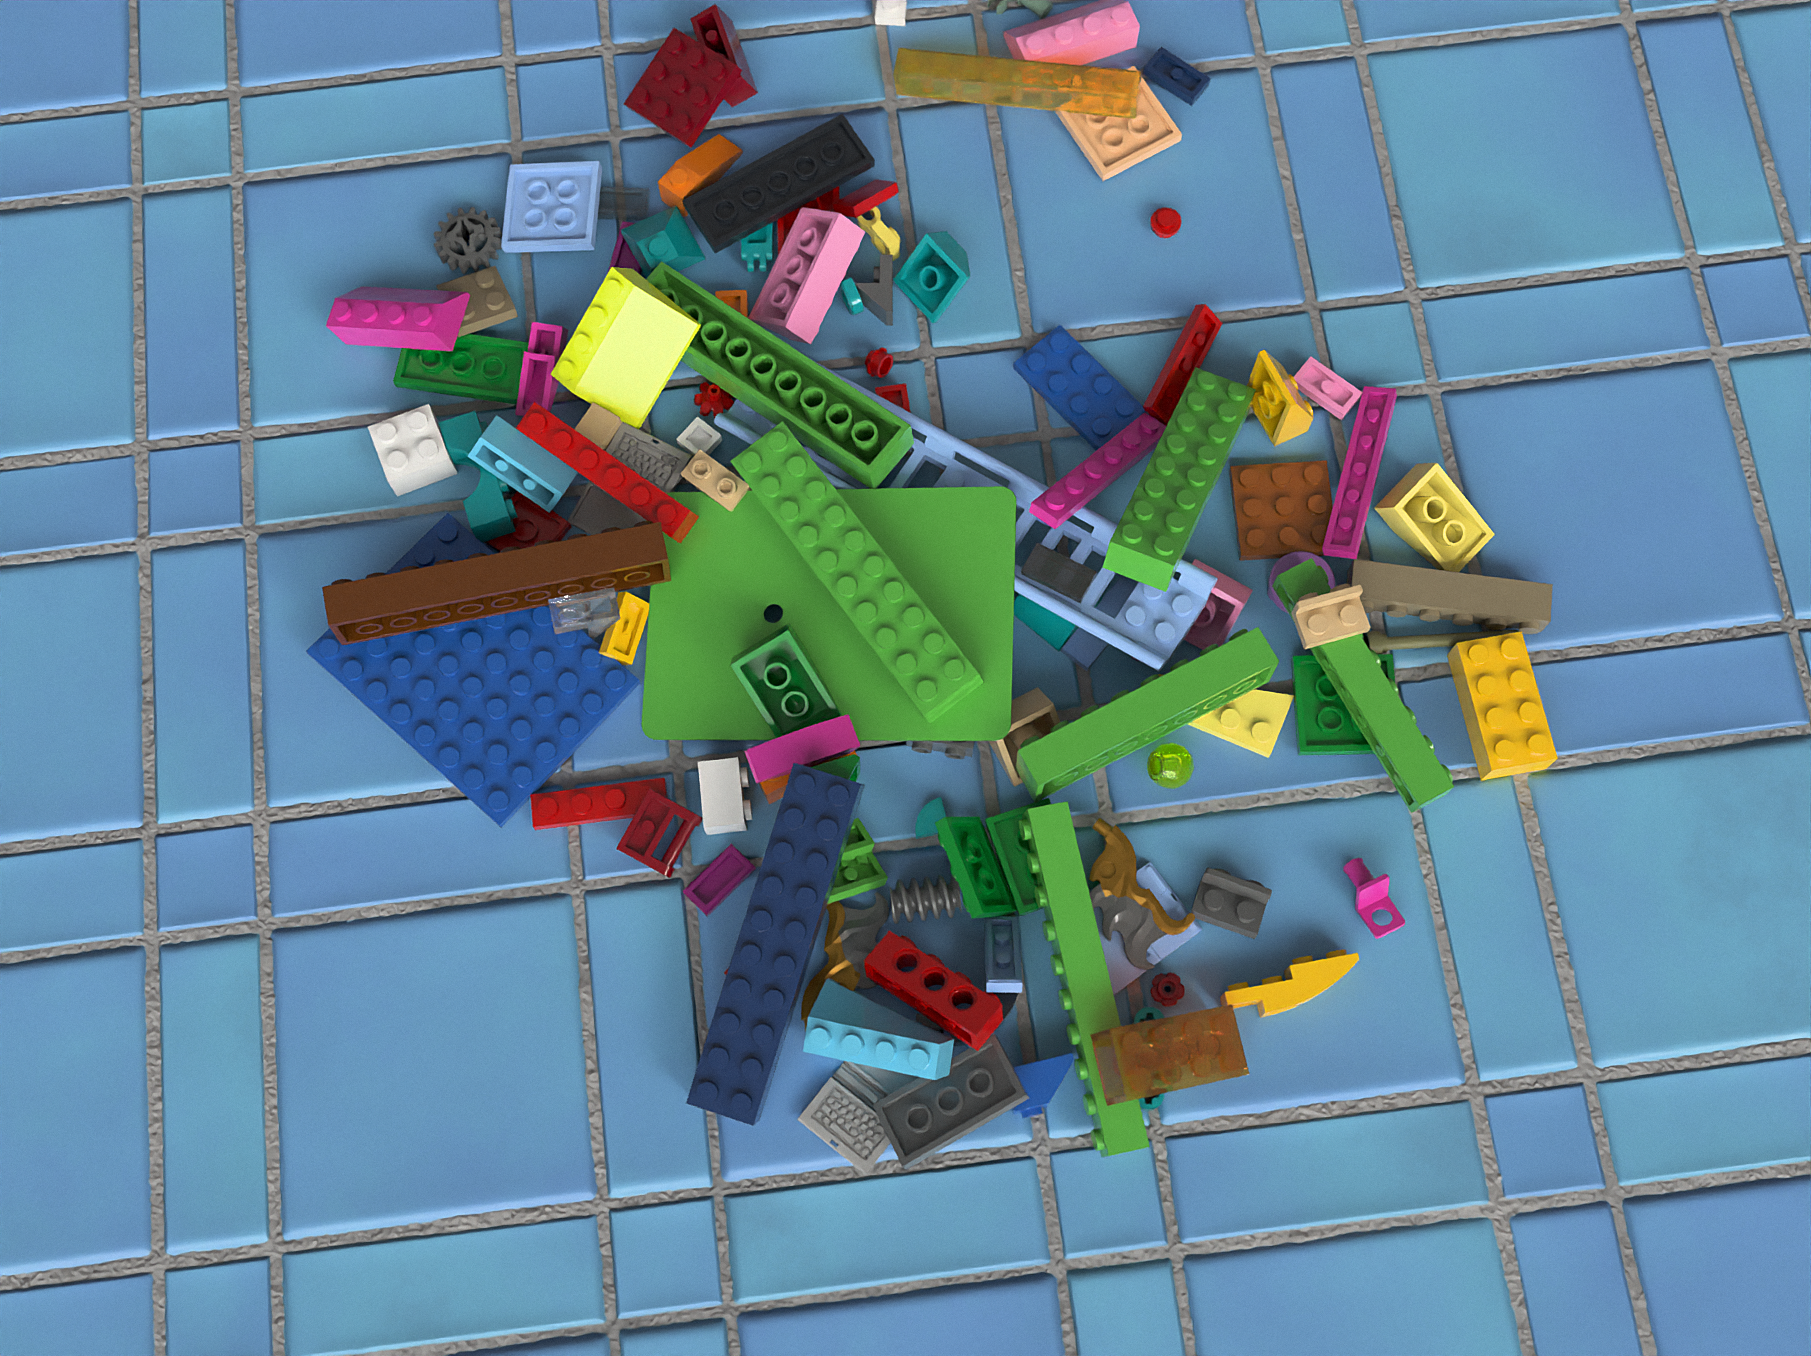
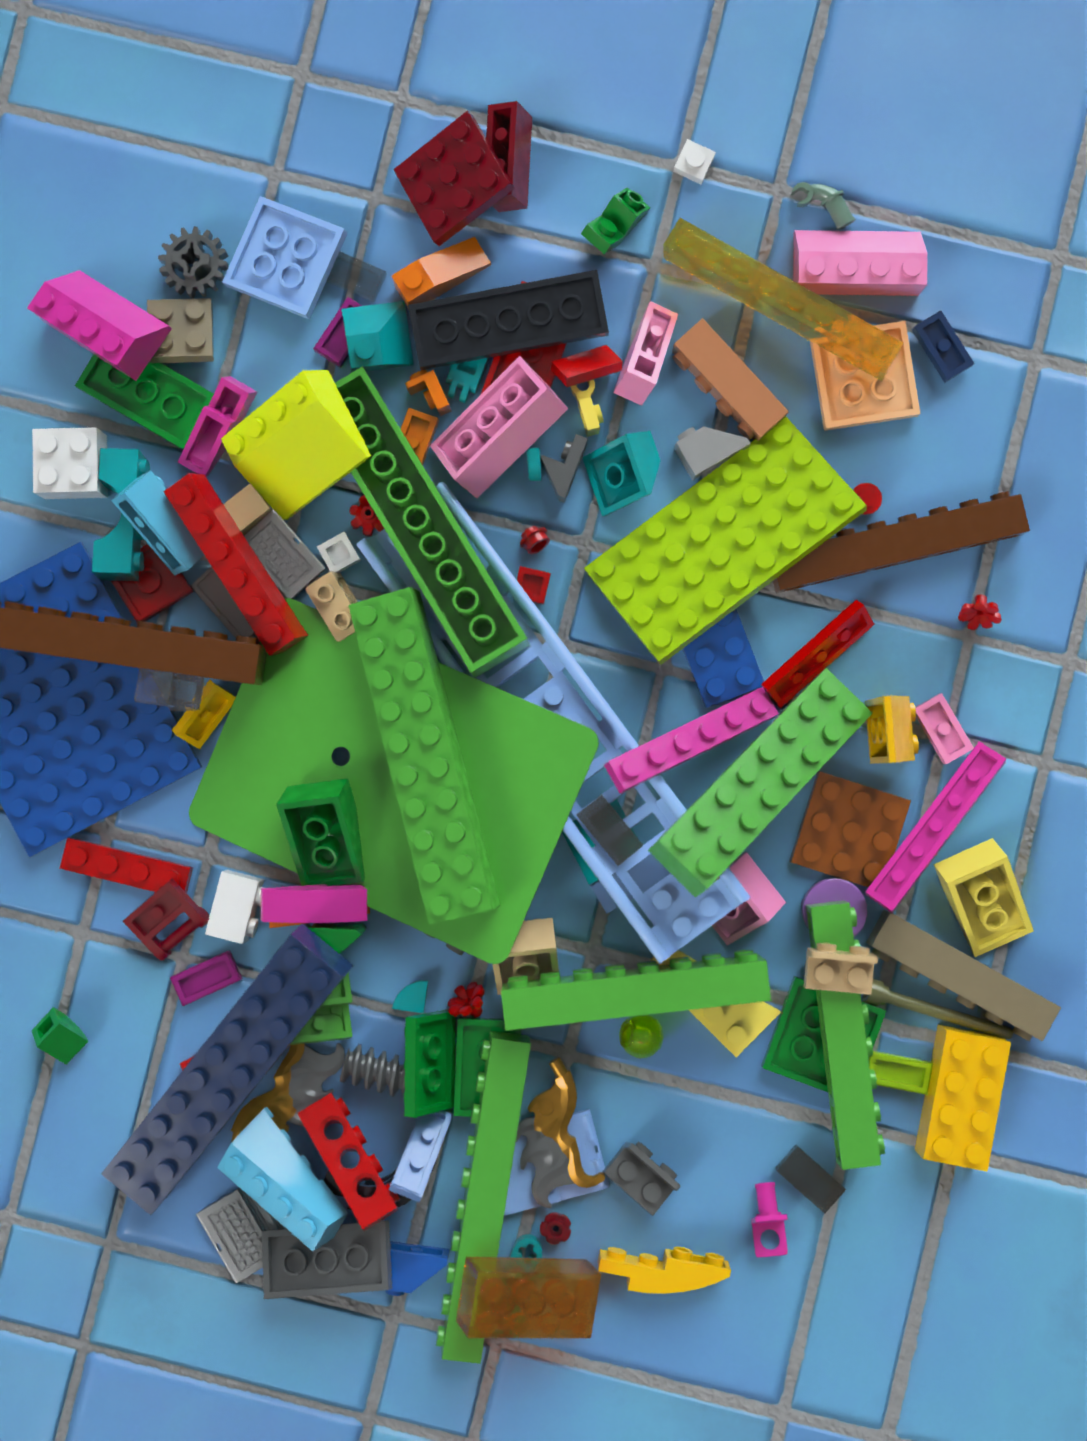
camera: 30 degrees right, 15 degrees up
(591, 991) = (59, 1036): none -> green brick
(731, 267) = (434, 395): none -> orange bracket
(842, 75) = (616, 221): none -> green slope
(915, 173) = (646, 354): none -> bright pink slope
(988, 799) = (467, 1000): none -> red plant
(1000, 168) = (728, 381): none -> nougat brick
(1005, 230) = (707, 449): none -> light grey slope
(1052, 298) = (724, 540): none -> lime plate
(1210, 247) = (909, 540): none -> reddish brown brick
(1313, 279) = (980, 613): none -> red plant
(1394, 843) = (810, 1178): none -> clear smoke tile
(1437, 709) = (901, 1072): none -> lime tile

